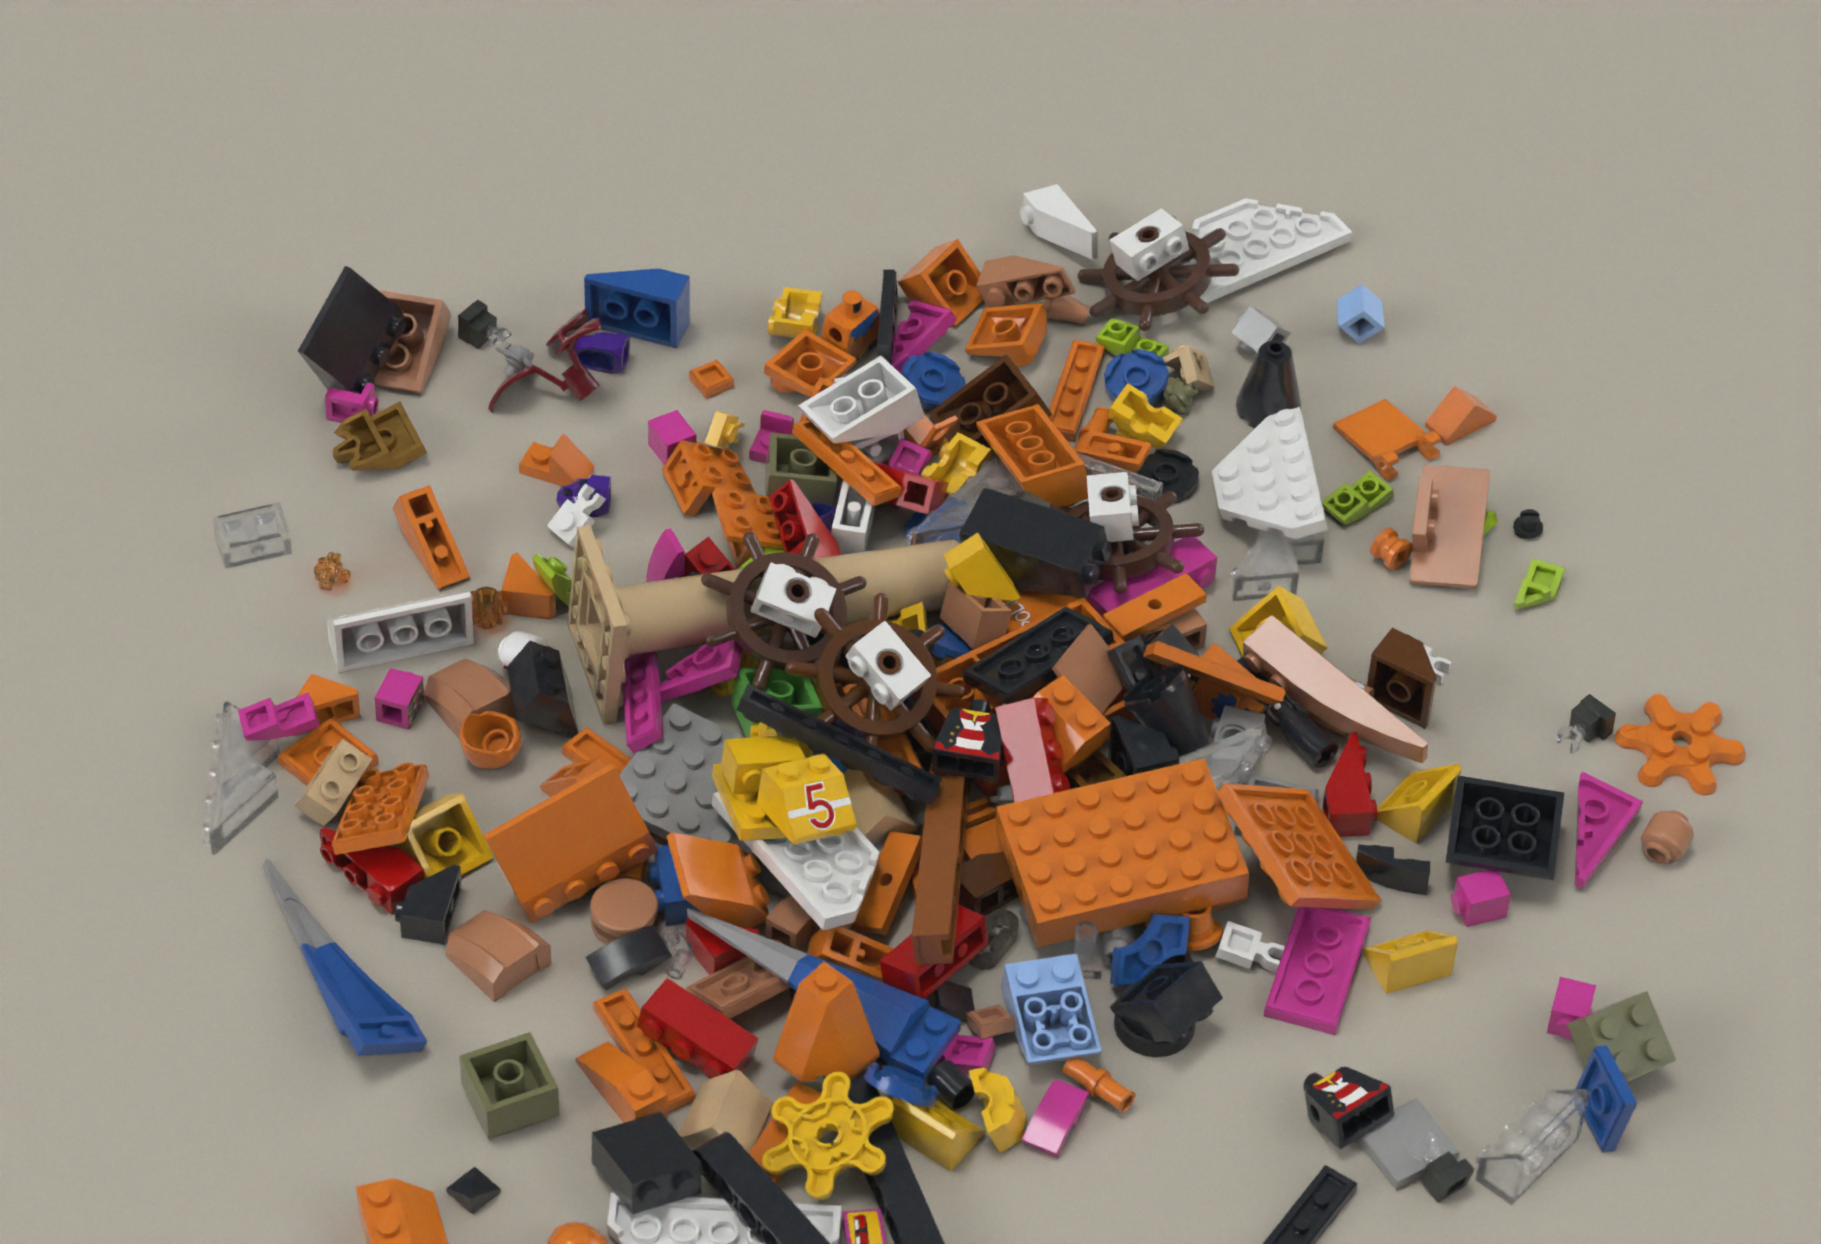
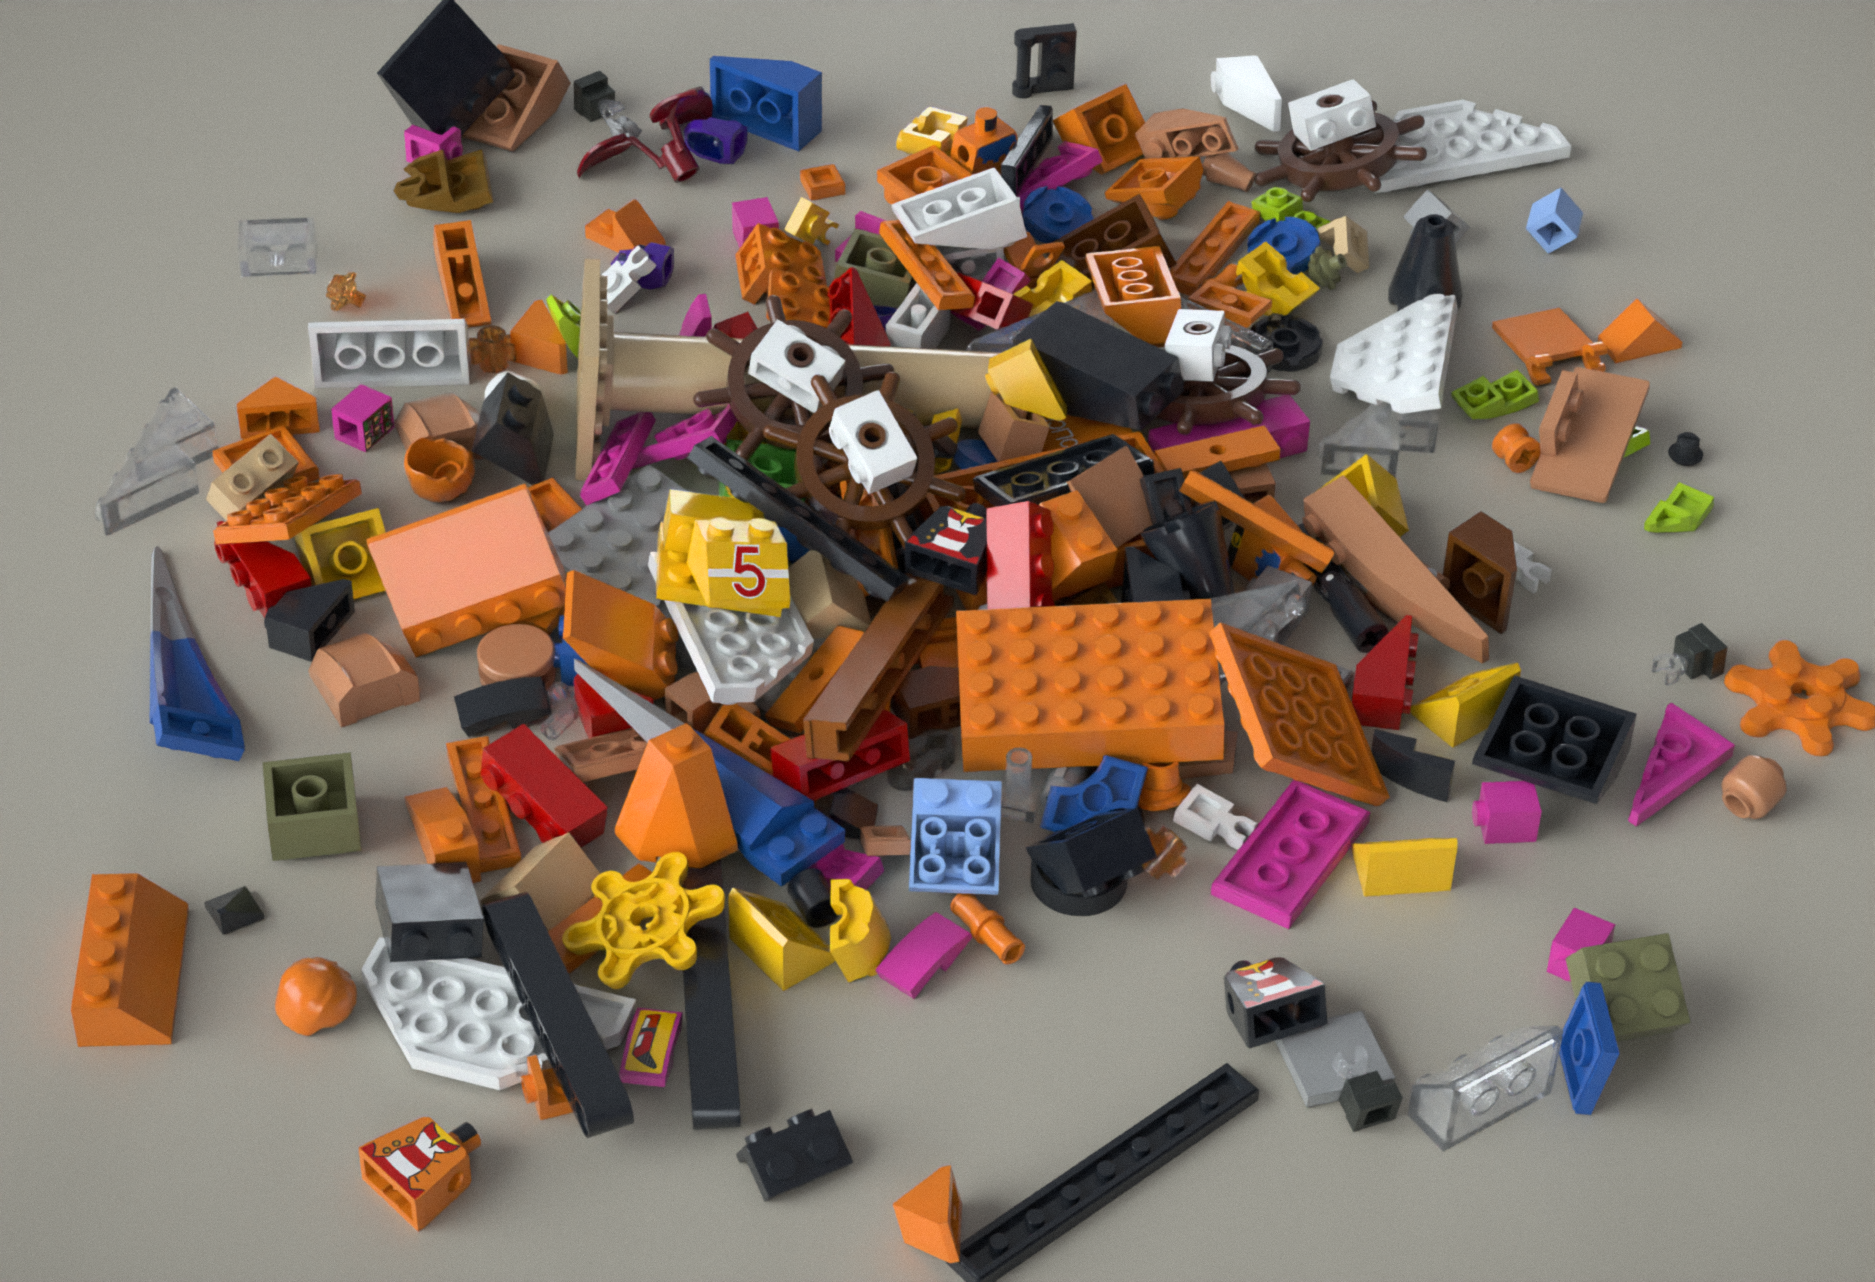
camera: 15 degrees right, 5 degrees down
(286, 719) = (210, 411): dark pink slope -> none
(881, 220) = (1055, 59): none -> black plate
(901, 1085) = (748, 881): blue tile -> none
(1227, 986) = (1169, 853): none -> clear orange gear

